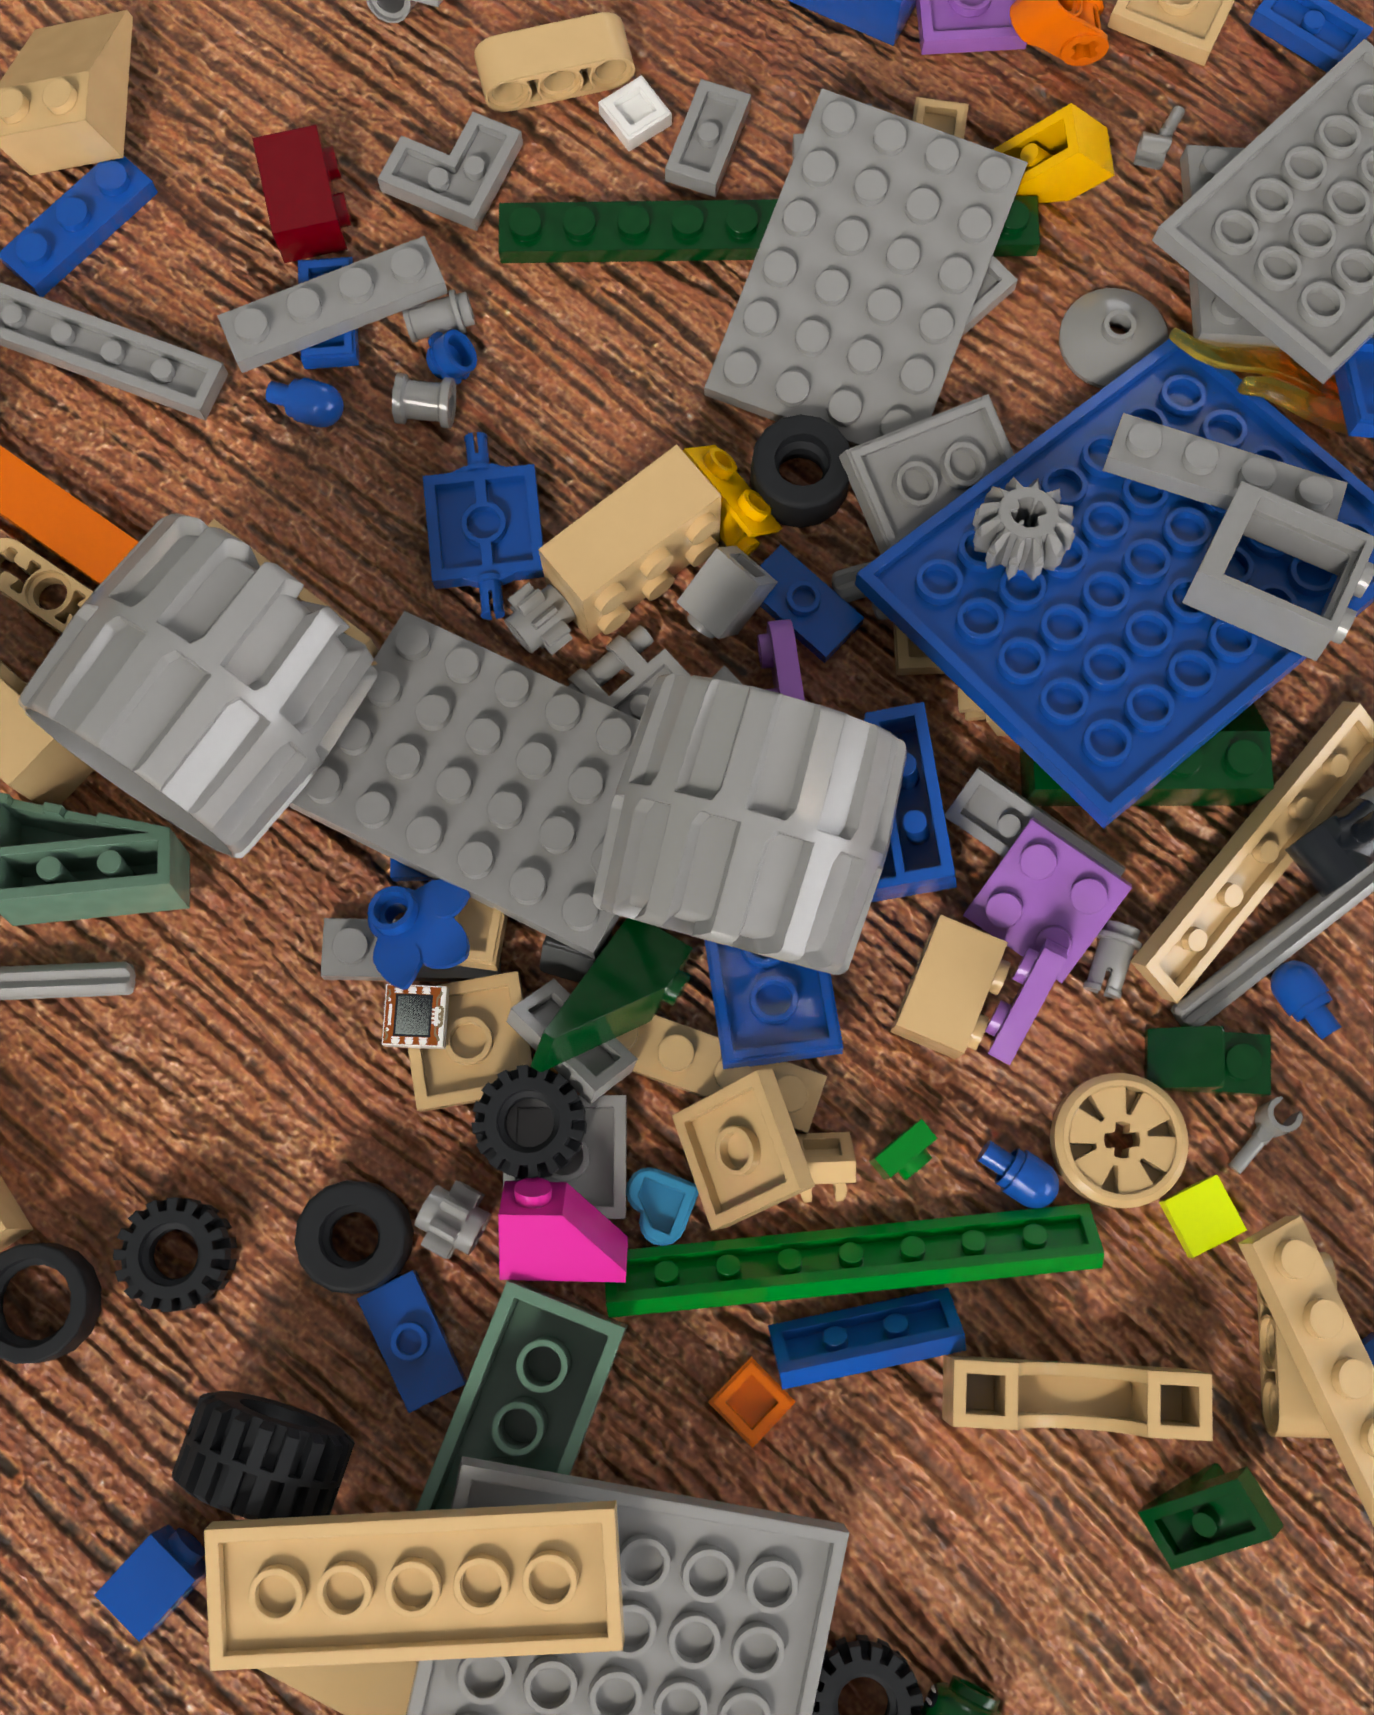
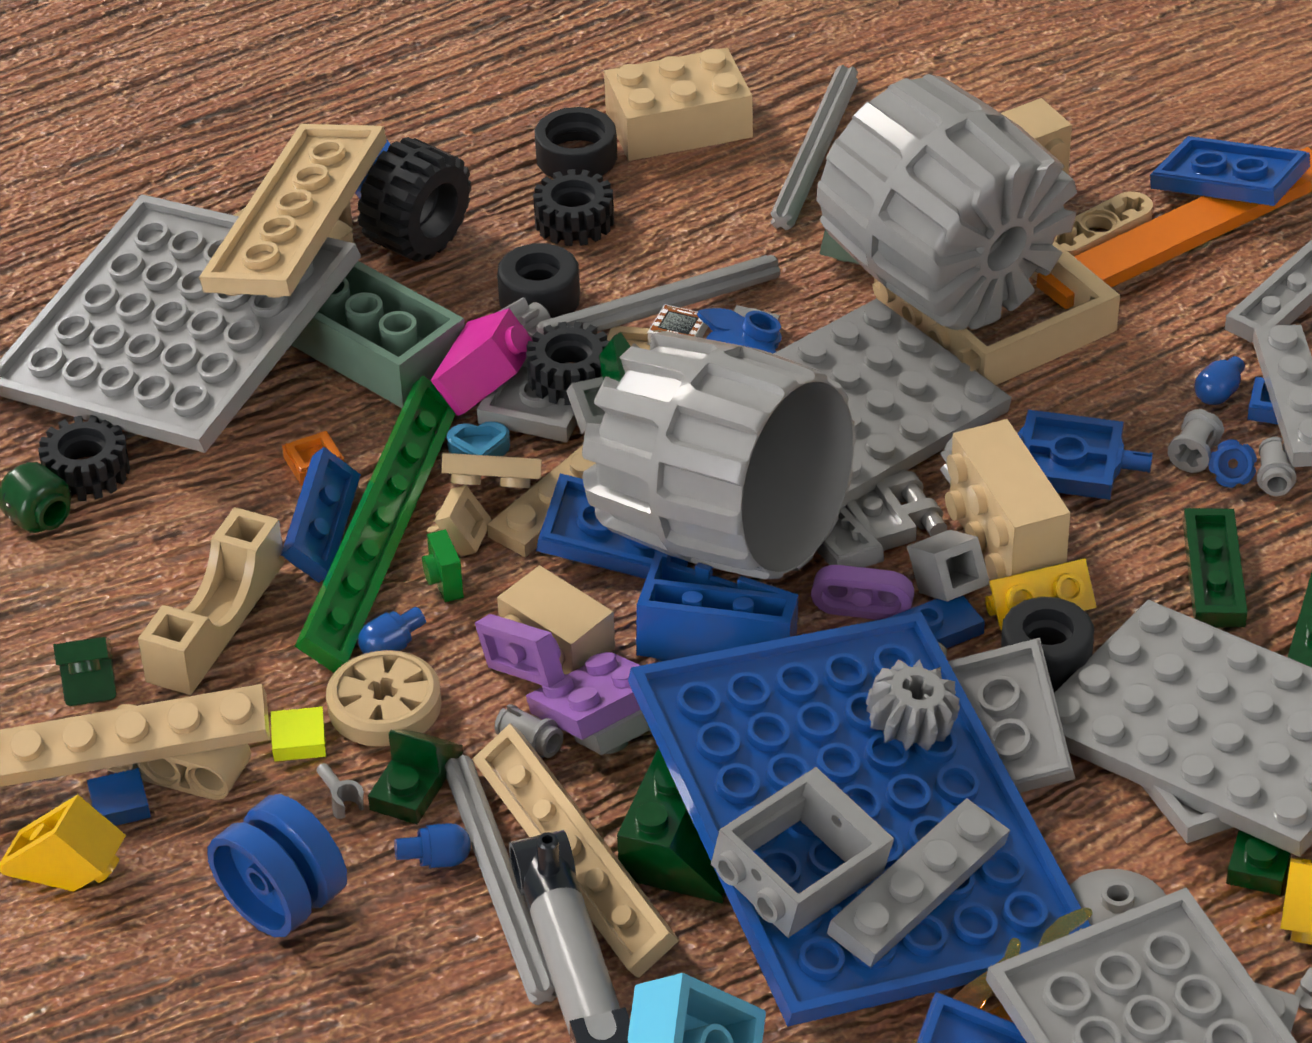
camera: 110 degrees right, 35 degrees down
(354, 1069) = (674, 294): none -> light grey axle
(412, 1341) = (466, 300): blue plate -> none
(620, 342) = (1214, 567): none -> dark green plate

